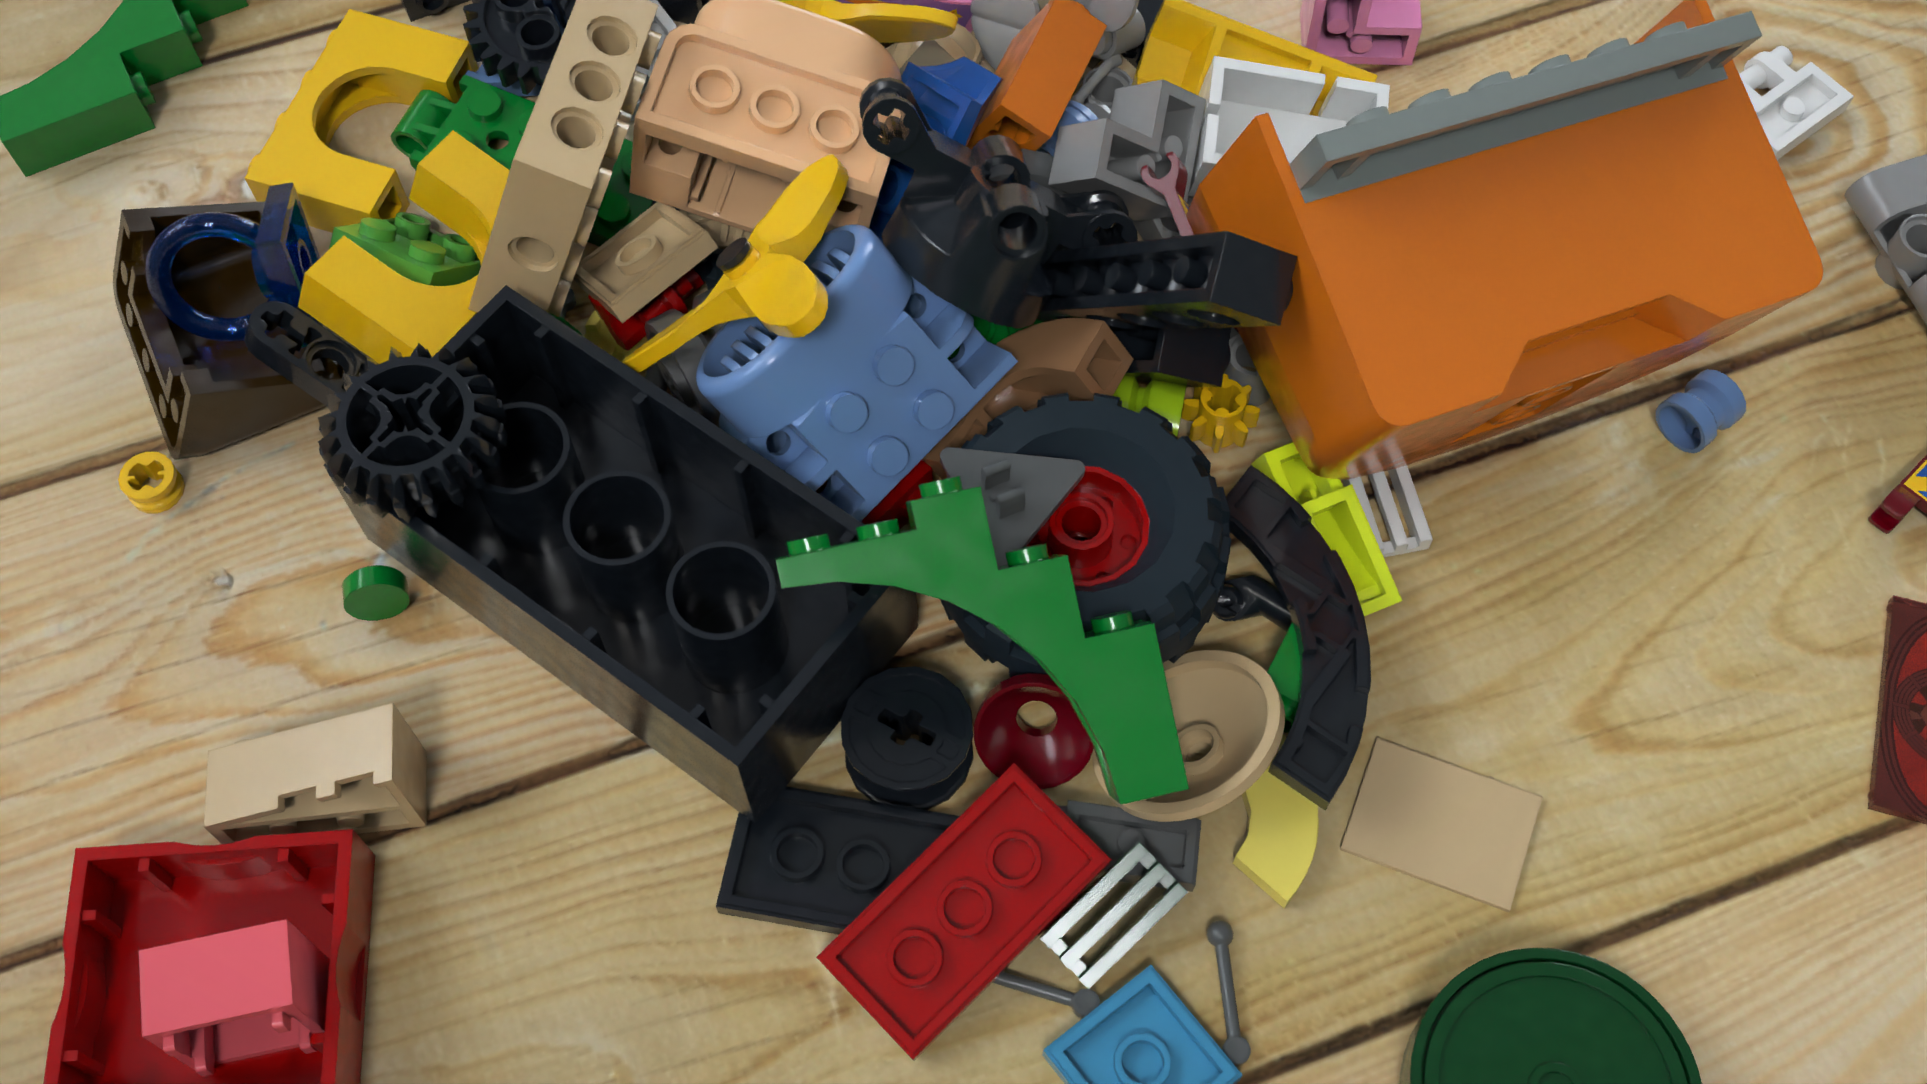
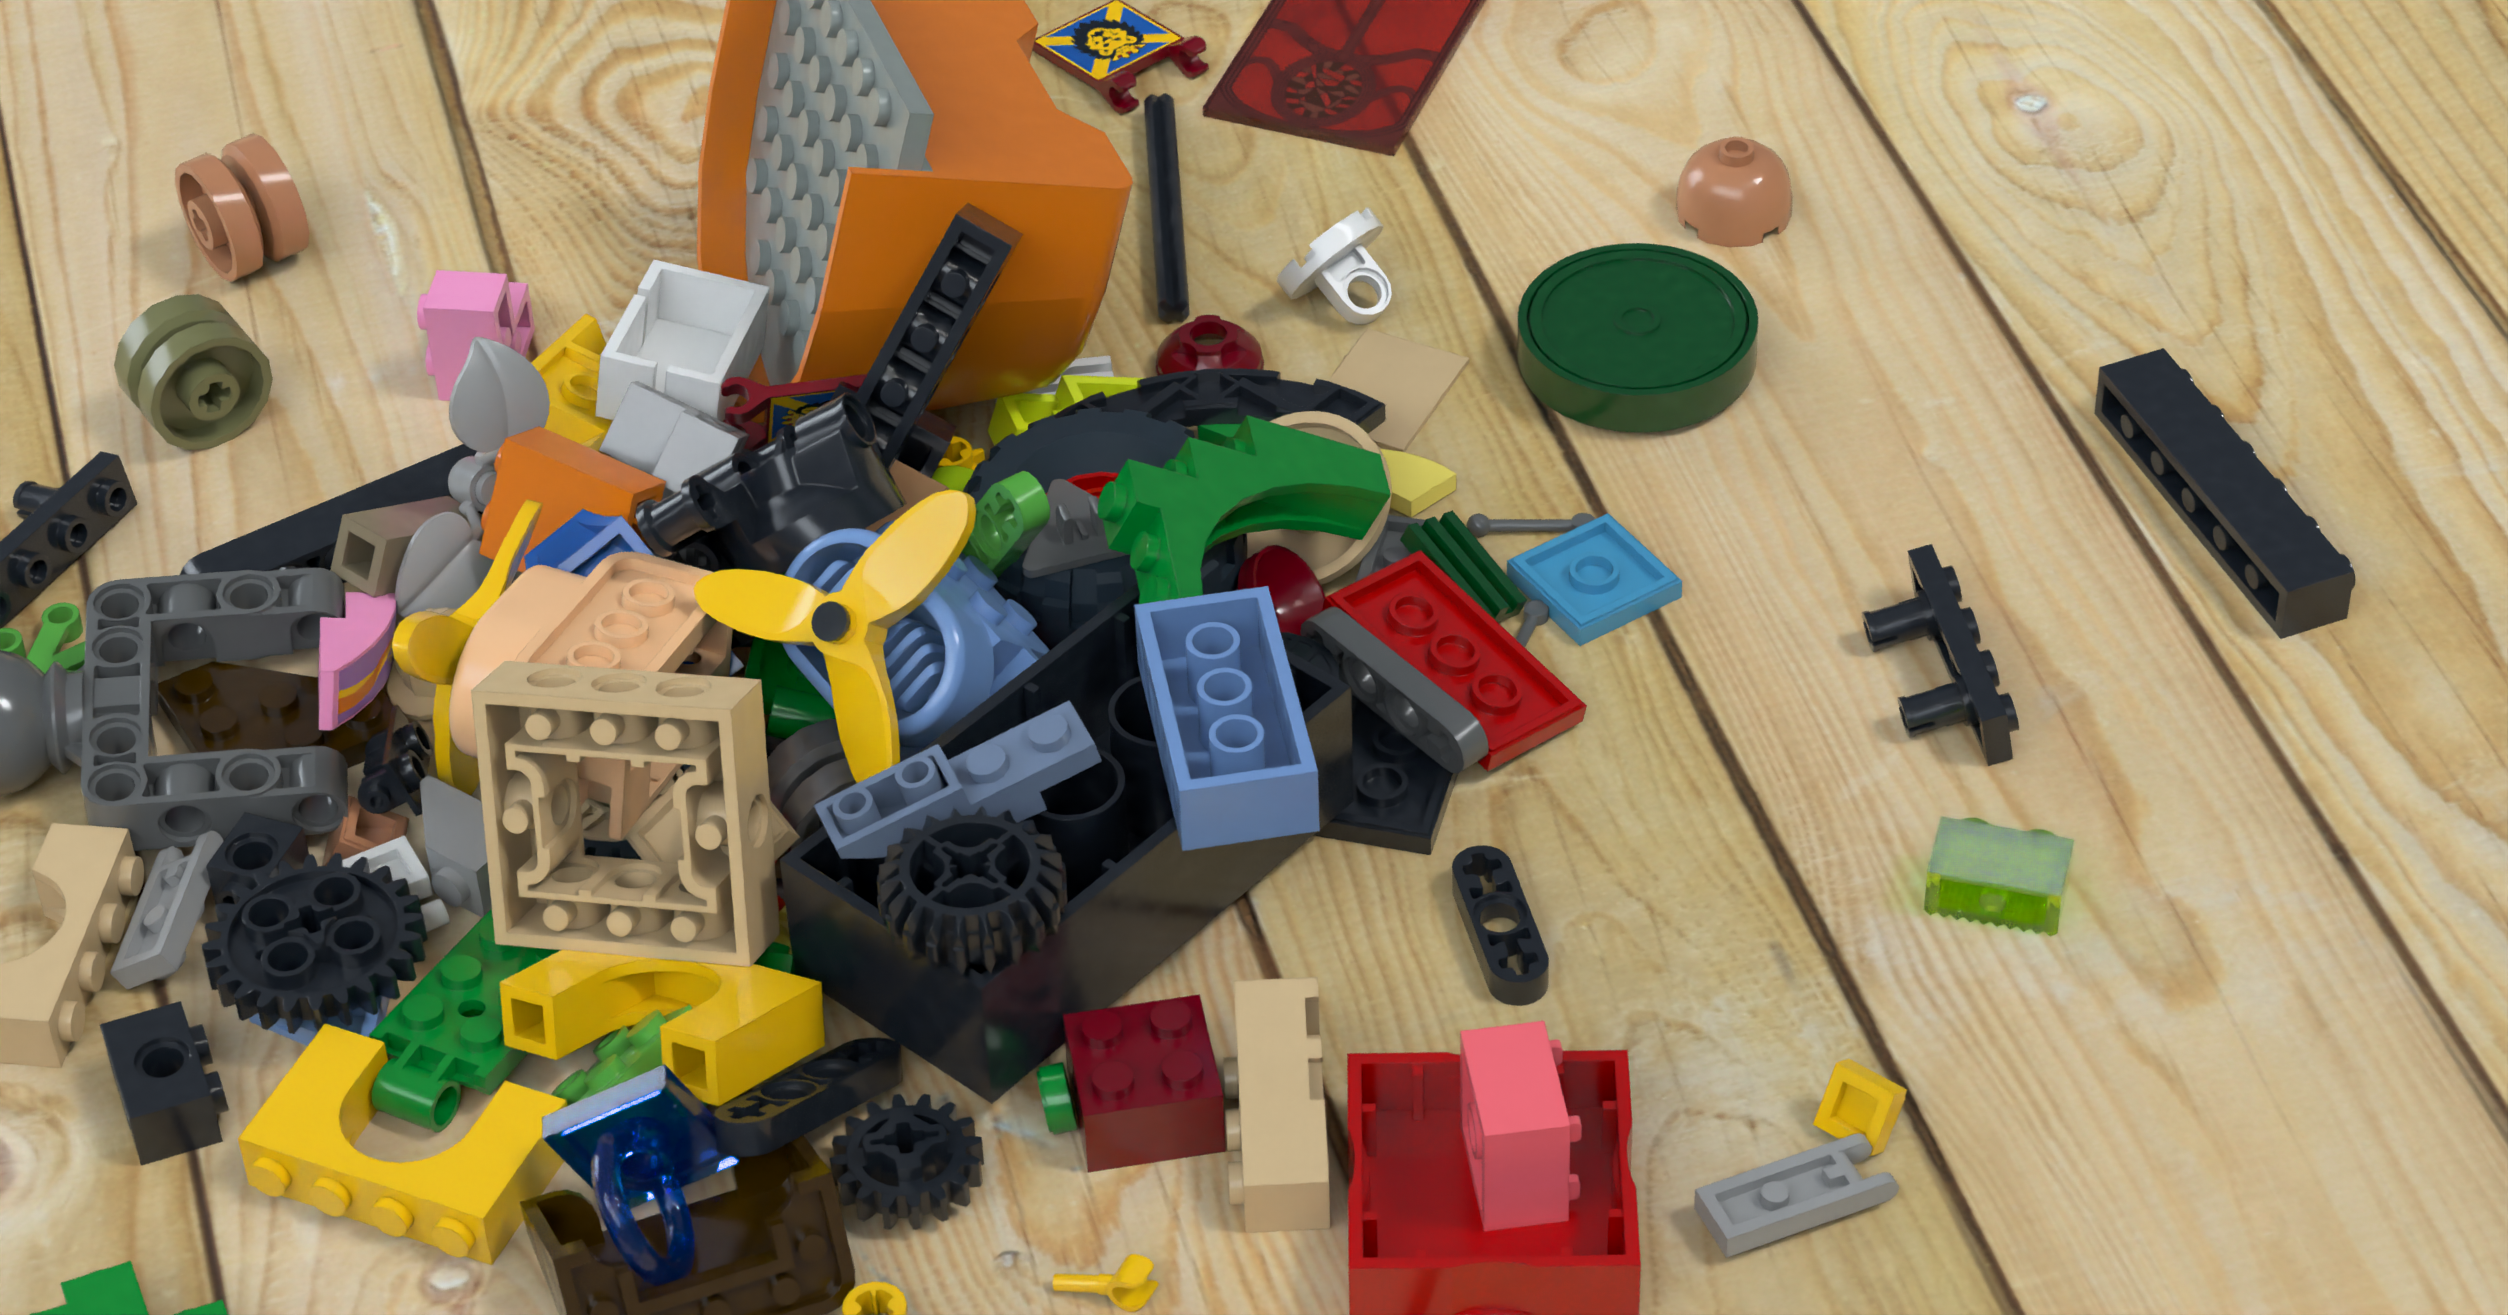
camera: 85 degrees left, 20 degrees down
(158, 673) = (1126, 1288): none -> yellow hand
(295, 477) = (907, 1161): none -> black gear
(378, 650) = (1144, 1083): none -> dark red brick
(549, 404) = (996, 775): none -> sand blue slope
(552, 1015) = (1495, 947): none -> black beam
(619, 629) = (1226, 718): none -> medium blue brick
(893, 850) = (1399, 692): none -> dark grey beam
(960, 406) = (1008, 521): none -> bright green beam
(1440, 662) = (1181, 353): none -> dark red piece
(1606, 746) = (1338, 260): none -> white tile
(1703, 572) = (1166, 208): none -> black axle
(1796, 102) = (675, 89): white plate -> none

